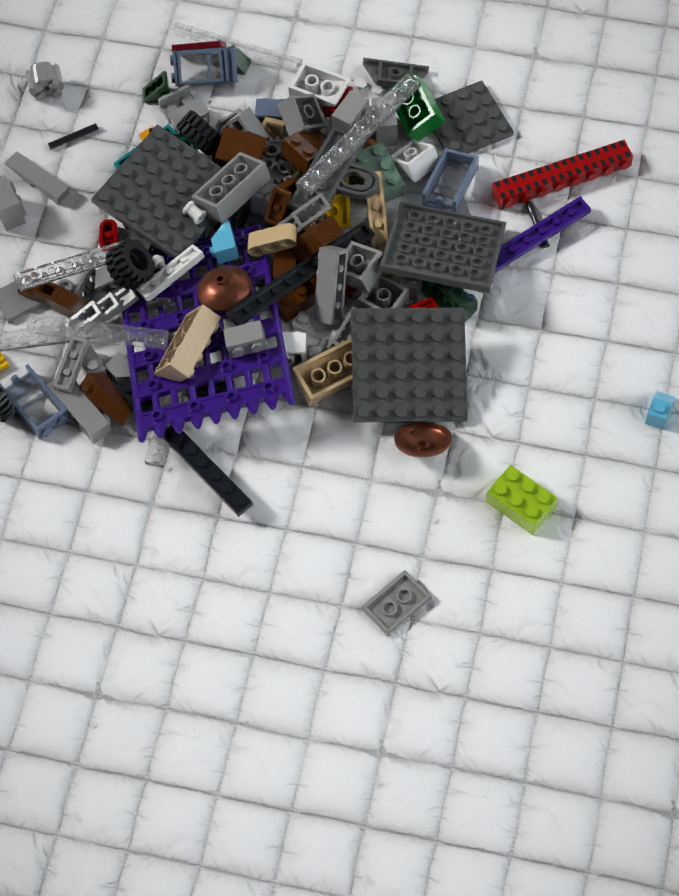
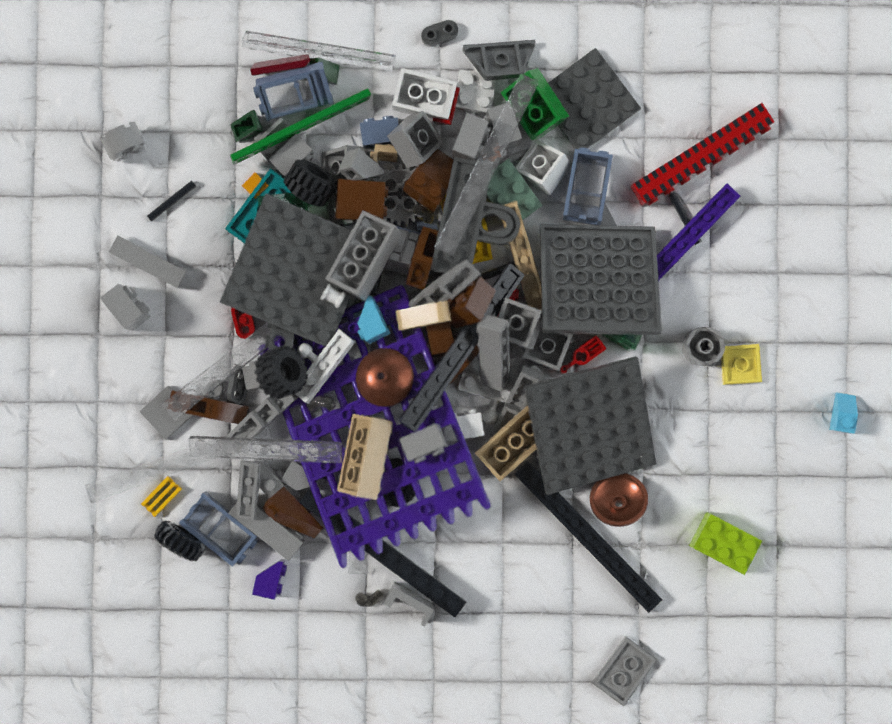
camera: 15 degrees left, 25 degrees up
(67, 454) = (268, 581): none -> dark purple slope
(158, 491) = (369, 601): none -> clear smoke arm
(186, 481) = (413, 600): none -> light grey panel
(203, 92) = (300, 126): none -> green tile
(345, 50) = (440, 34): none -> dark grey plate
(388, 474) = (589, 538): none -> black plate
(532, 325) = (714, 344): none -> light grey brick
(567, 351) = (741, 364): none -> light yellow tile

